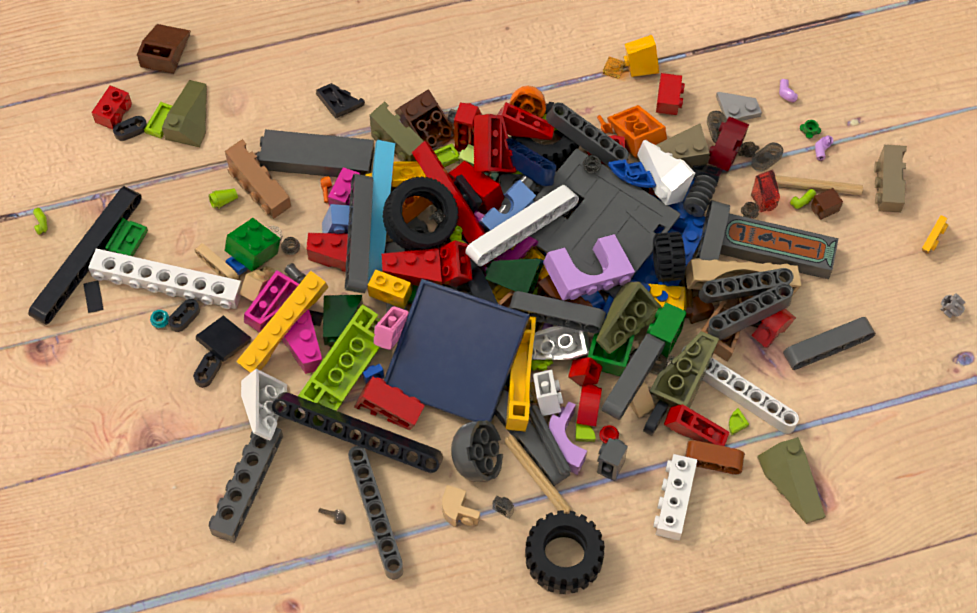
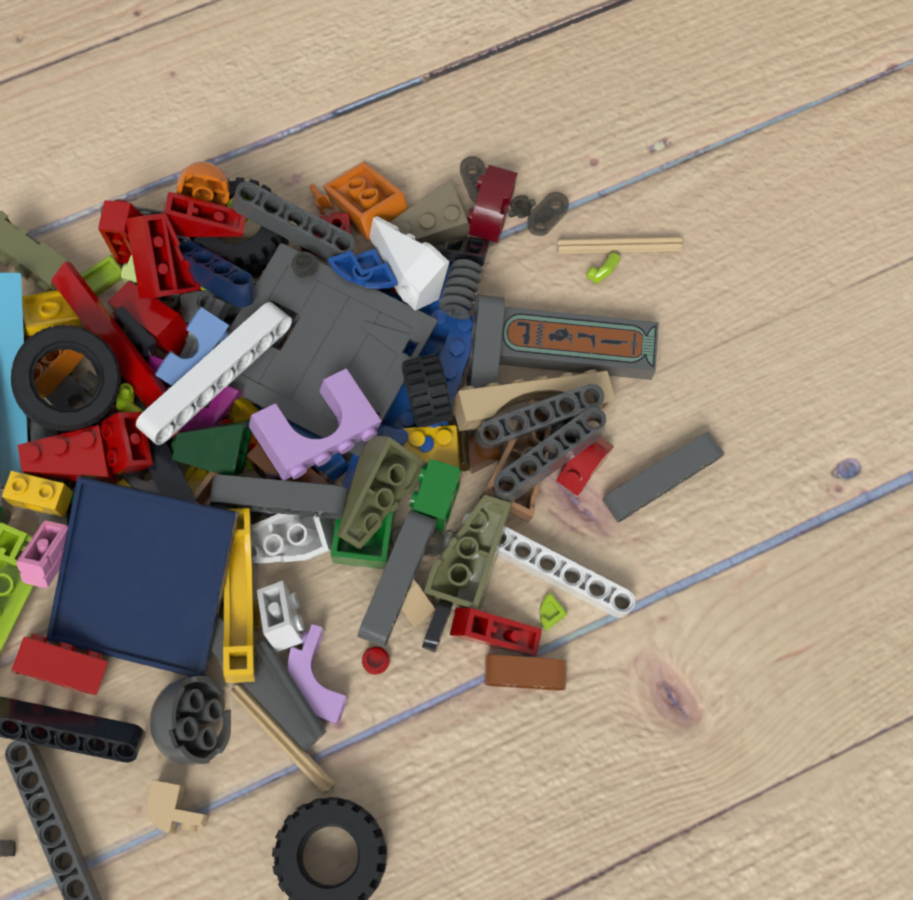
camera: 10 degrees left, 10 degrees up
(373, 371) = (31, 622): blue plate -> none
(426, 119) = (68, 227): reddish brown slope -> none
(503, 506) = (238, 795): clear smoke plate -> none
(540, 364) = (267, 570): lime plant -> none
(584, 433) = (340, 661): lime tile -> none
(585, 371) = (331, 573): red brick -> none
(589, 405) = (342, 621): red brick -> none
(611, 458) = (381, 701): dark grey brick -> none
(613, 67) = (324, 111): clear yellow plate -> none
(641, 57) = (359, 92): yellow torso -> none
(669, 94) = (403, 141): red brick -> none
(676, 497) = (478, 742): white brick -> none
(738, 106) = (500, 146): light grey wing -> none
(750, 206) = (533, 289): clear smoke plate -> none
(765, 191) = (551, 267): clear red slope -> none
(787, 93) = (562, 116): lavender arm -> none
(791, 474) = (632, 679): olive wedge -> none
(810, 124) = (601, 158): green plate -> none
(821, 145) = (620, 186): lavender arm -> none
(826, 203) = (636, 271): reddish brown brick -> none
(890, 179) = (718, 224): dark tan wedge -> none
(932, 242) = (793, 286): yellow wing -> none
(952, 305) = (823, 396): light grey gear -> none

